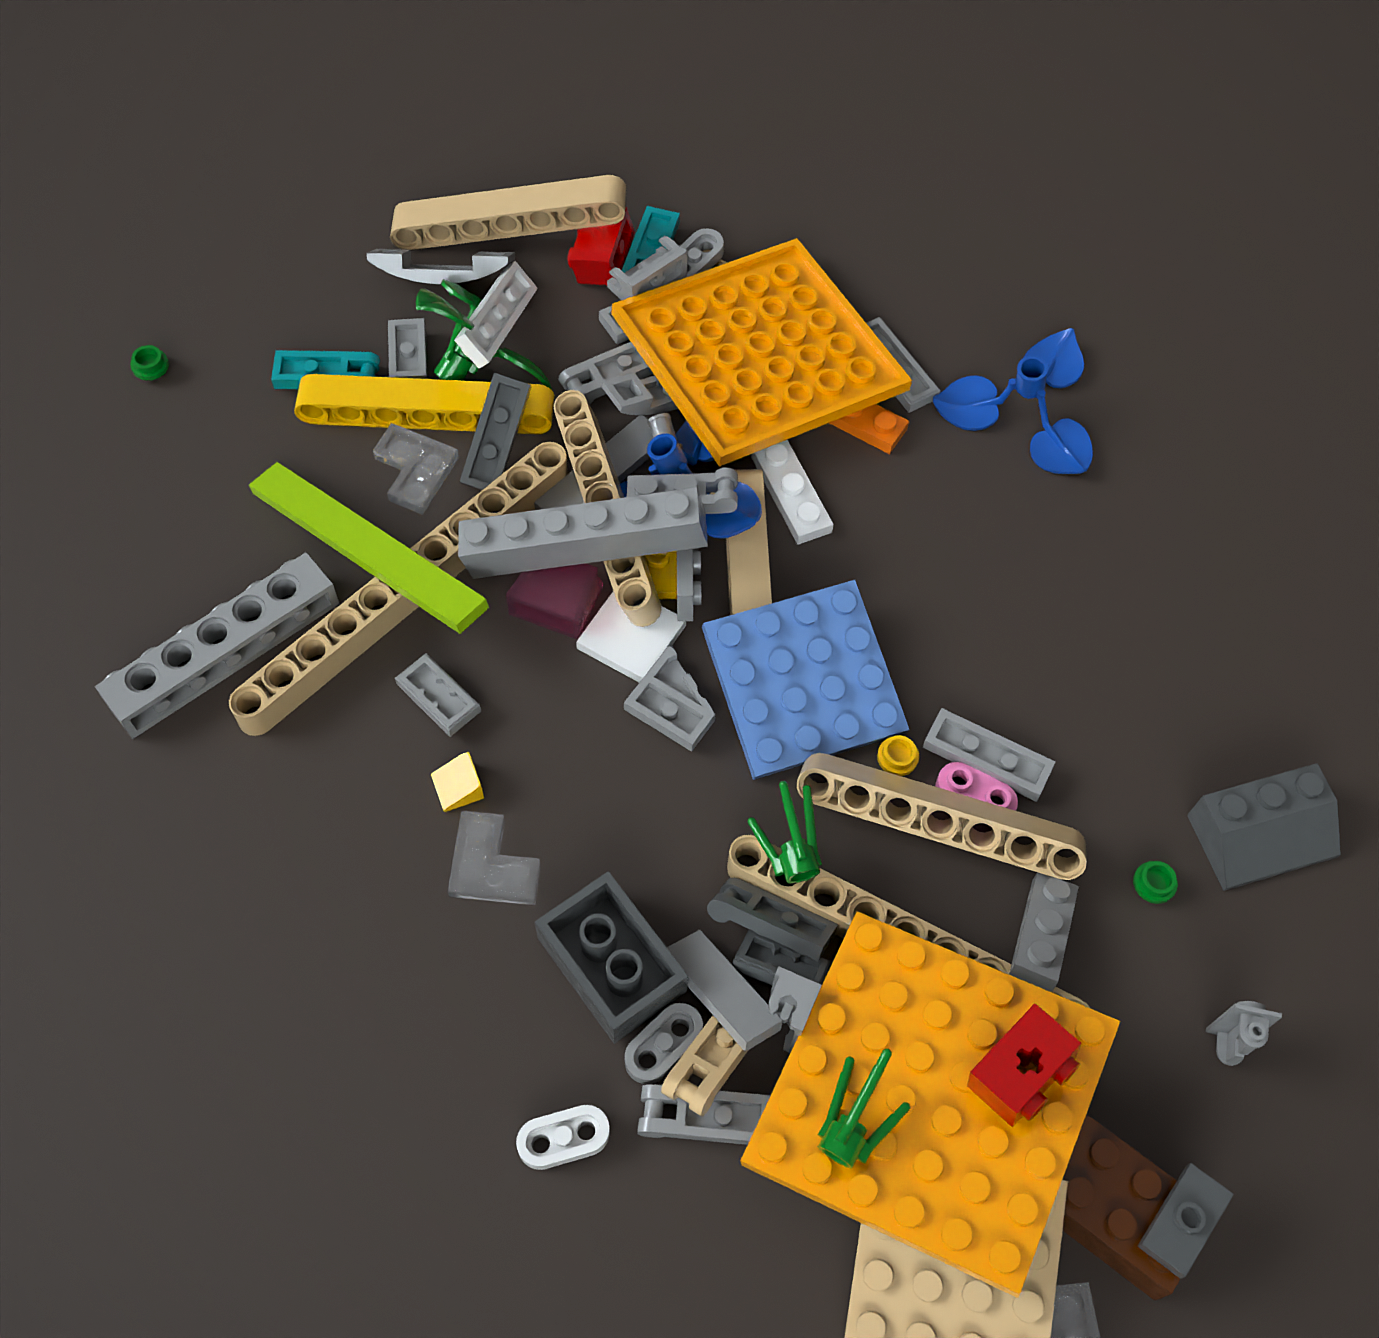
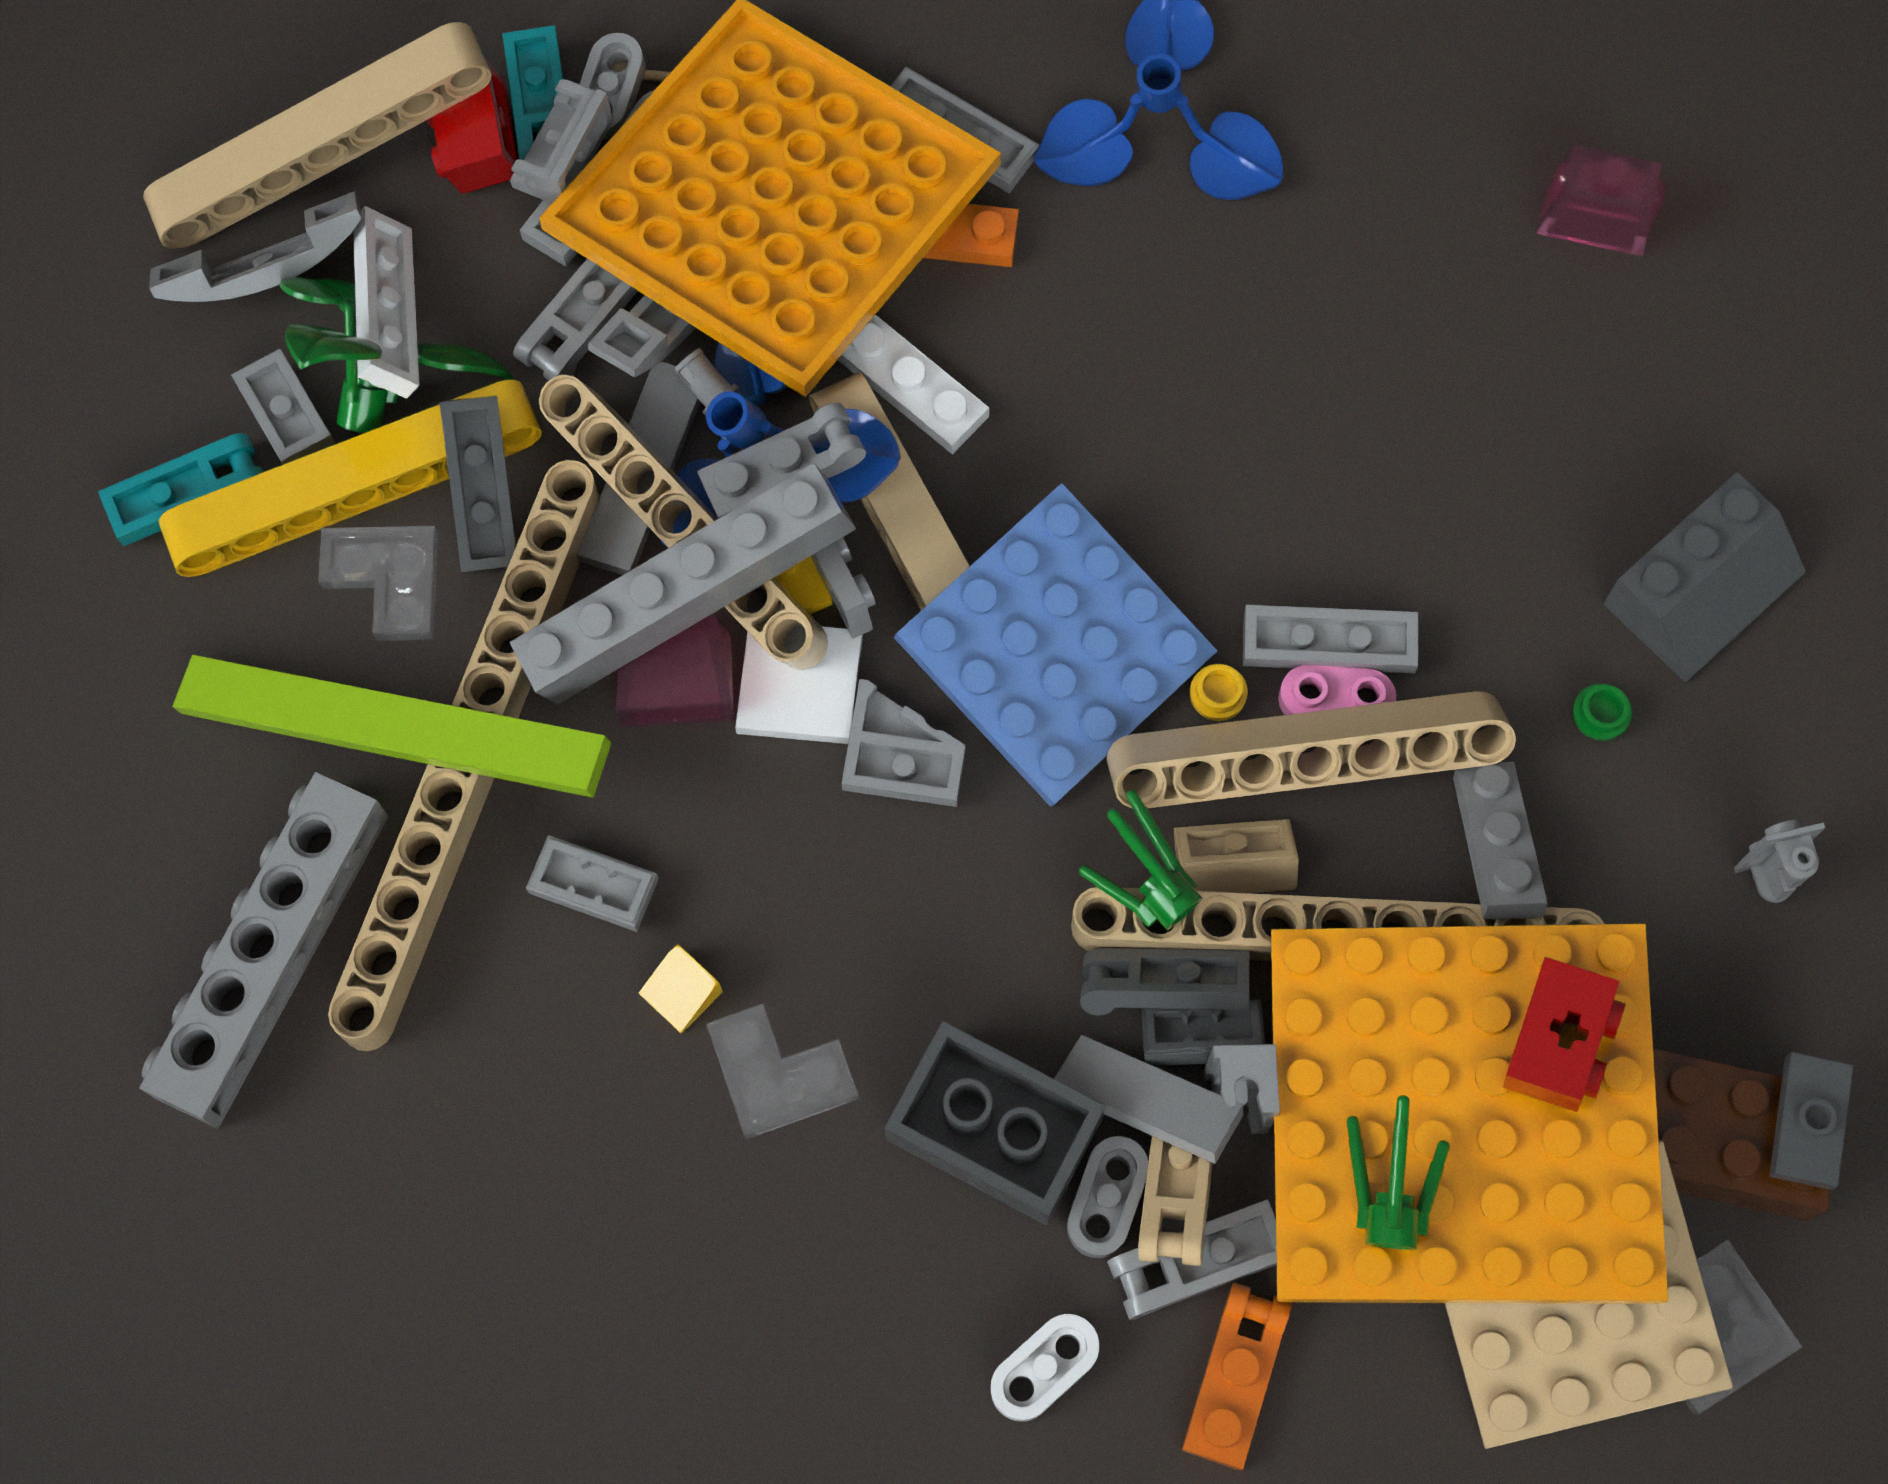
camera: 20 degrees left, 10 degrees up
(690, 1211) = (1236, 1379): none -> orange plate
(862, 863) = (1239, 856): none -> tan slope
(1296, 563) = (1602, 200): none -> clear pink torso

